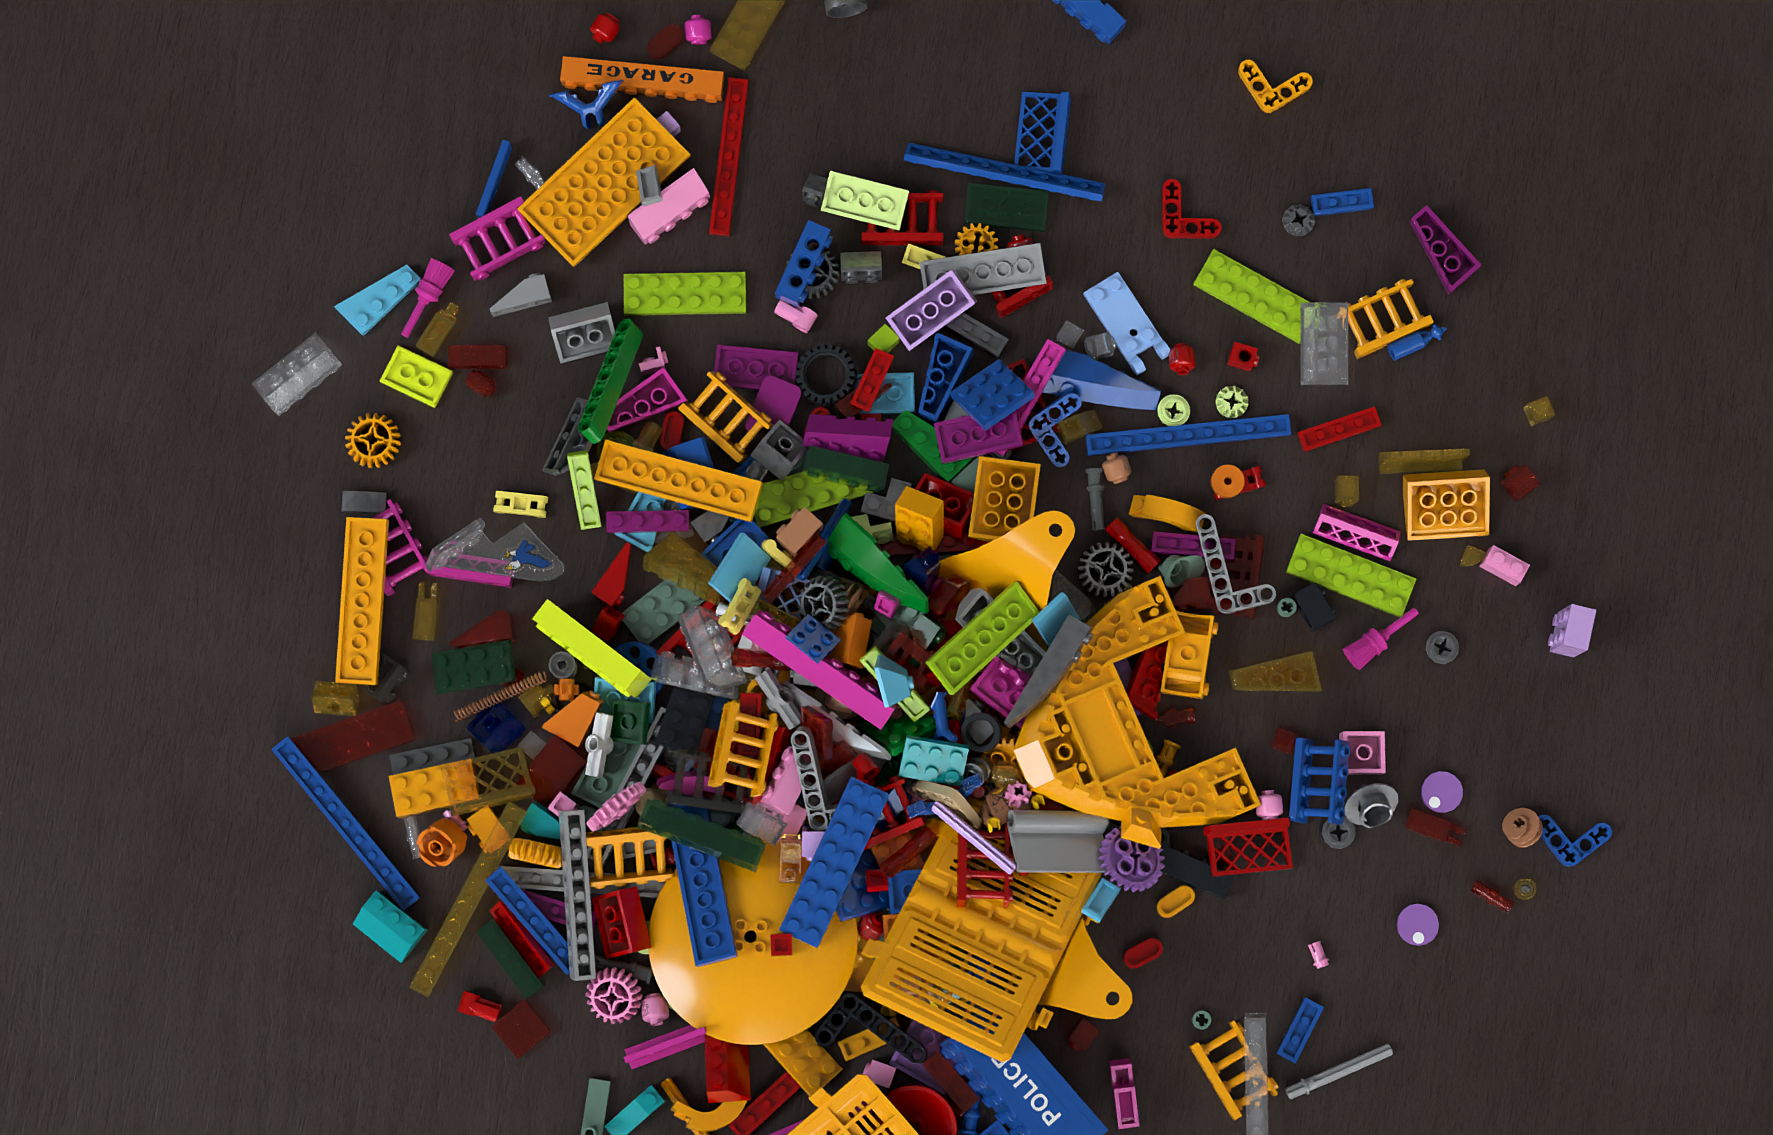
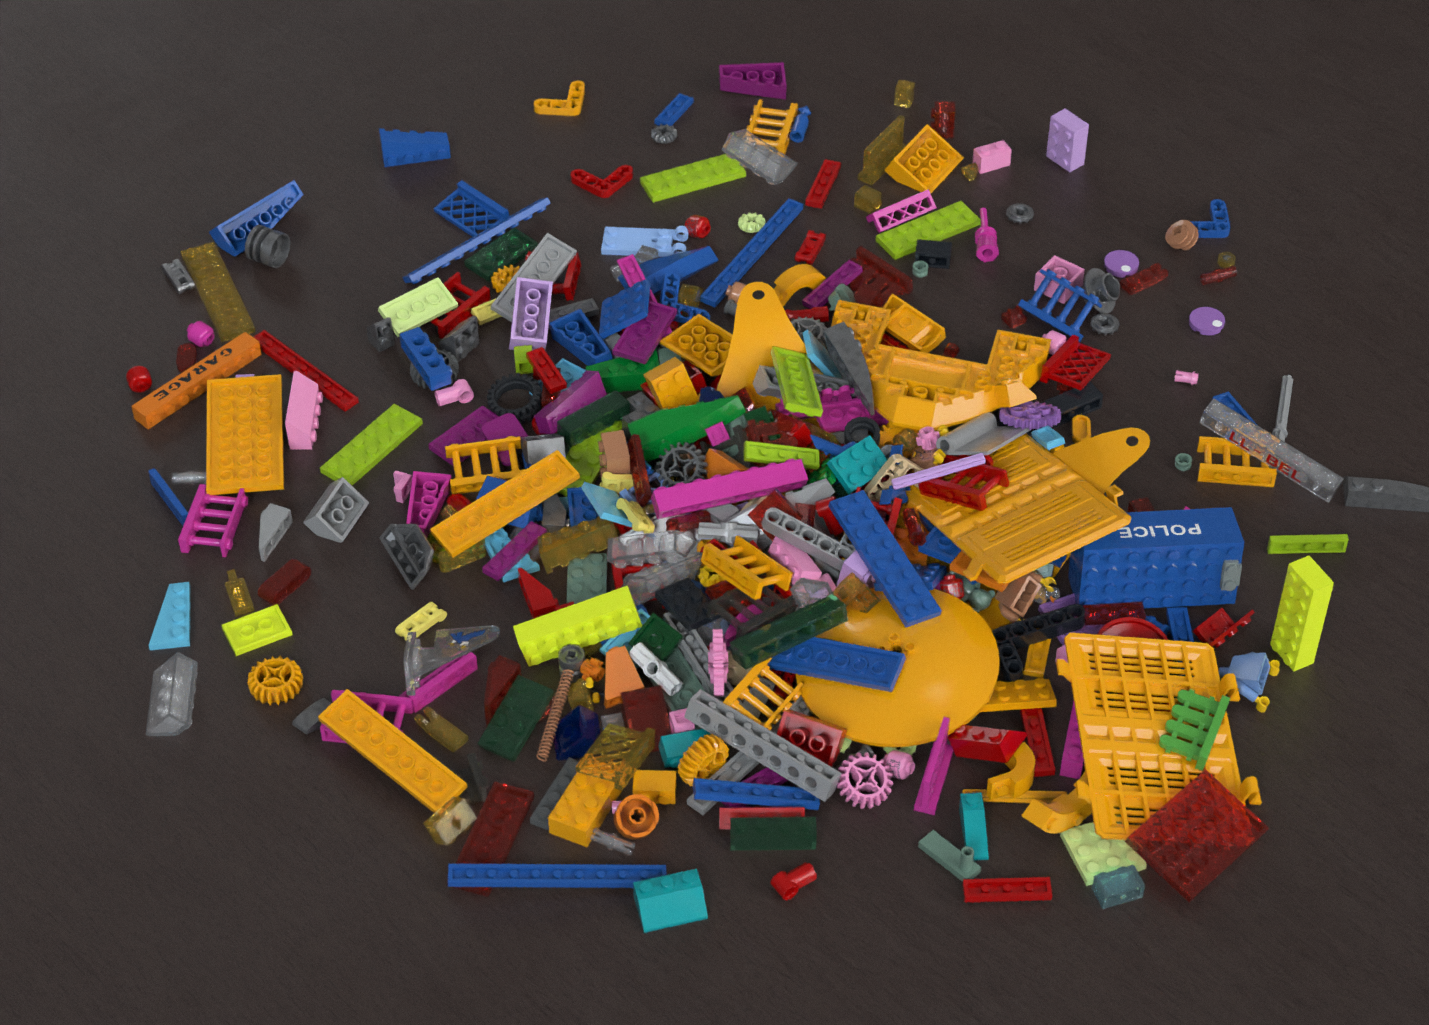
camera: 50 degrees left, 35 degrees down
(429, 290) = (202, 577): dark pink piece -> none
(467, 899) = (699, 828): clear yellow plate -> none
(480, 383) = (306, 591): clear red brick -> none
(521, 1029) = (837, 864): clear red plate -> none
(584, 489) = (453, 567): lime tile -> none
(586, 109) = (186, 413): blue piece -> none
(610, 381) = (391, 501): green beam -> none
(649, 185) = (278, 400): light grey tile -> none
(781, 945) = (920, 628): red plate -> none
(813, 638) = (709, 472): blue hinge -> none
(876, 880) = (920, 557): red plate -> none
(892, 681) = (777, 441): medium azure slope -> none
(1181, 406) = (729, 246): yellowish green gear -> none
(1222, 573) = (860, 272): light grey beam -> none
(1234, 475) = (804, 245): orange piece -> none
(1235, 361) = (726, 199): red brick -> none
(1285, 673) = (965, 290): clear yellow wedge -> none

